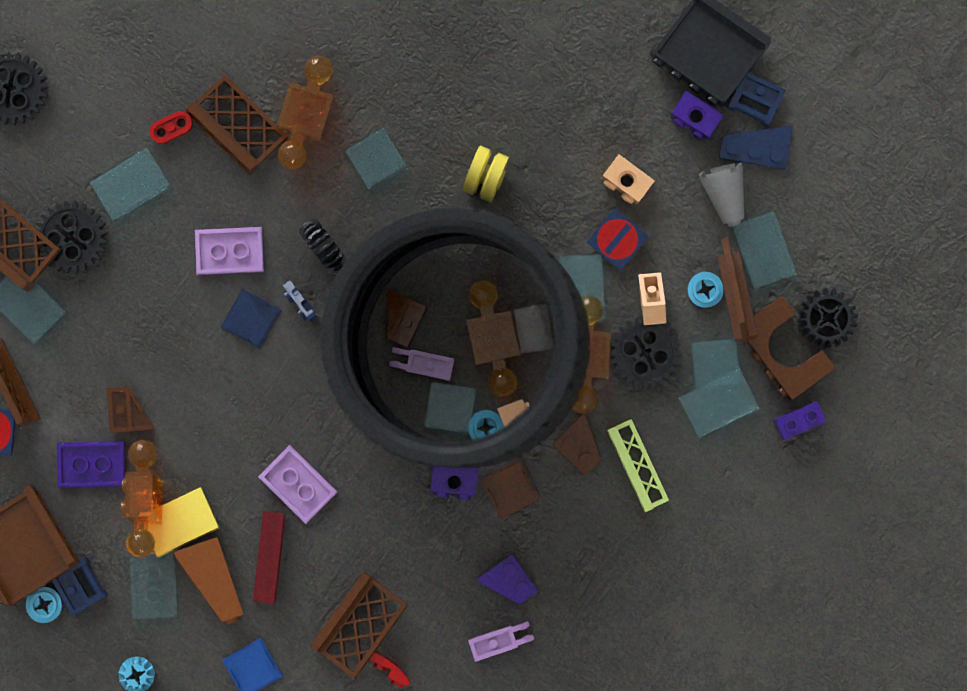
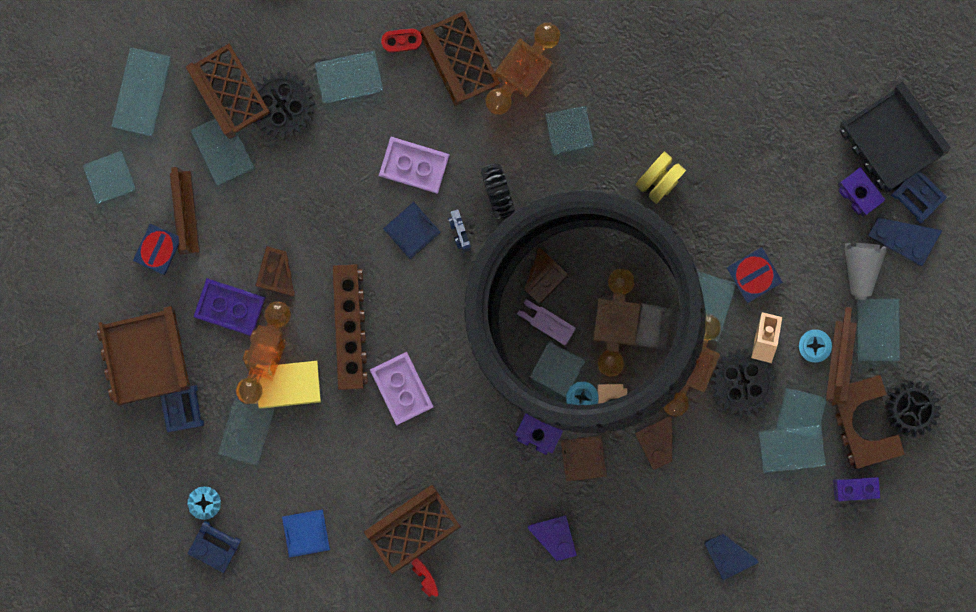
camera: 20 degrees right, 0 degrees up
(41, 615) = (138, 408): medium azure gear -> none
(193, 390) = (341, 274): none -> reddish brown brick
(211, 577) = (298, 442): dark orange slope -> none
(269, 557) = (354, 442): dark red fence -> none
(498, 641) = (526, 586): lavender hinge -> none
(622, 167) = (792, 230): light nougat brick -> none
(630, 469) = (695, 480): yellowish green fence -> none
(693, 536) = (728, 556): none -> dark blue wing

